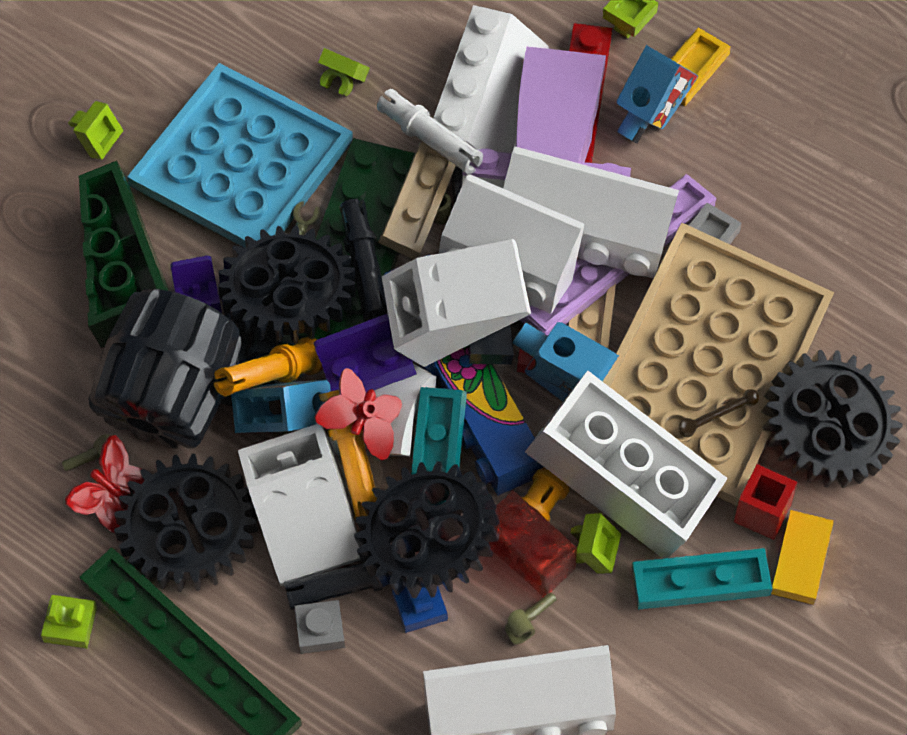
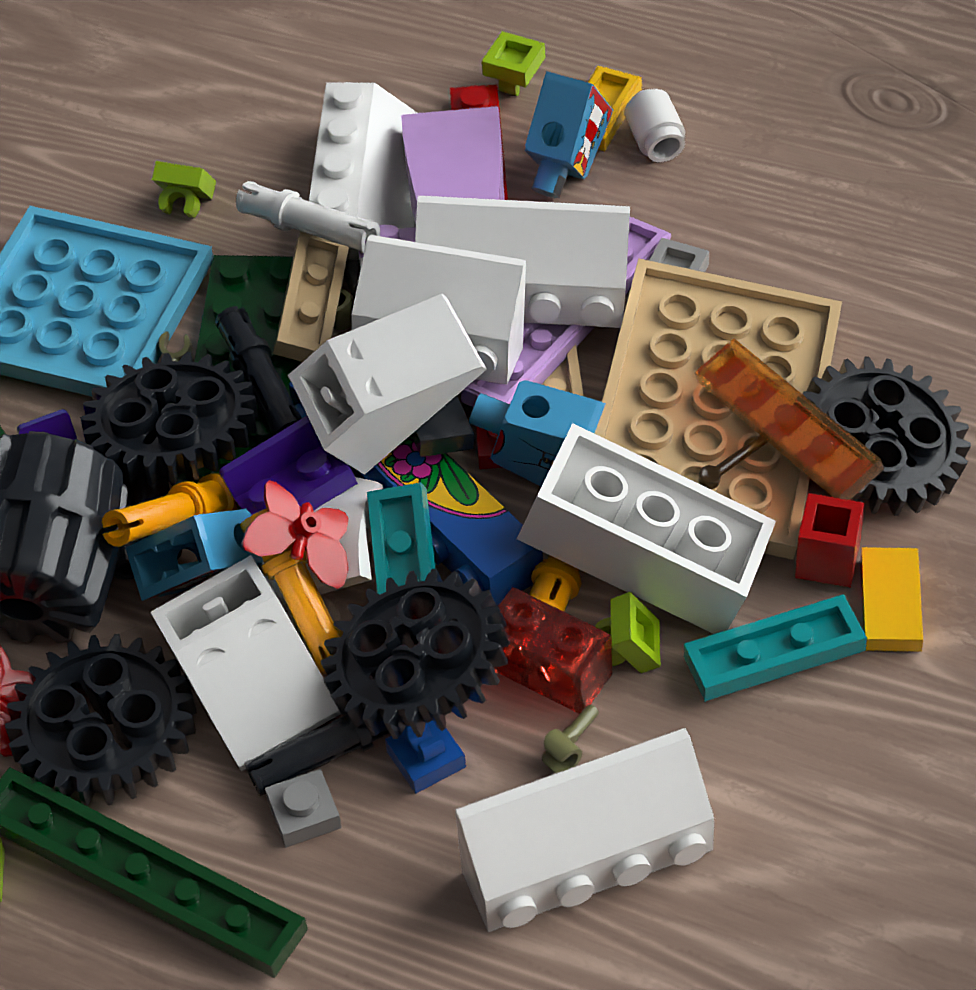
camera: 10 degrees left, 10 degrees down
(729, 95) = (655, 125): none -> white brick
(759, 396) = (789, 421): none -> clear orange tile

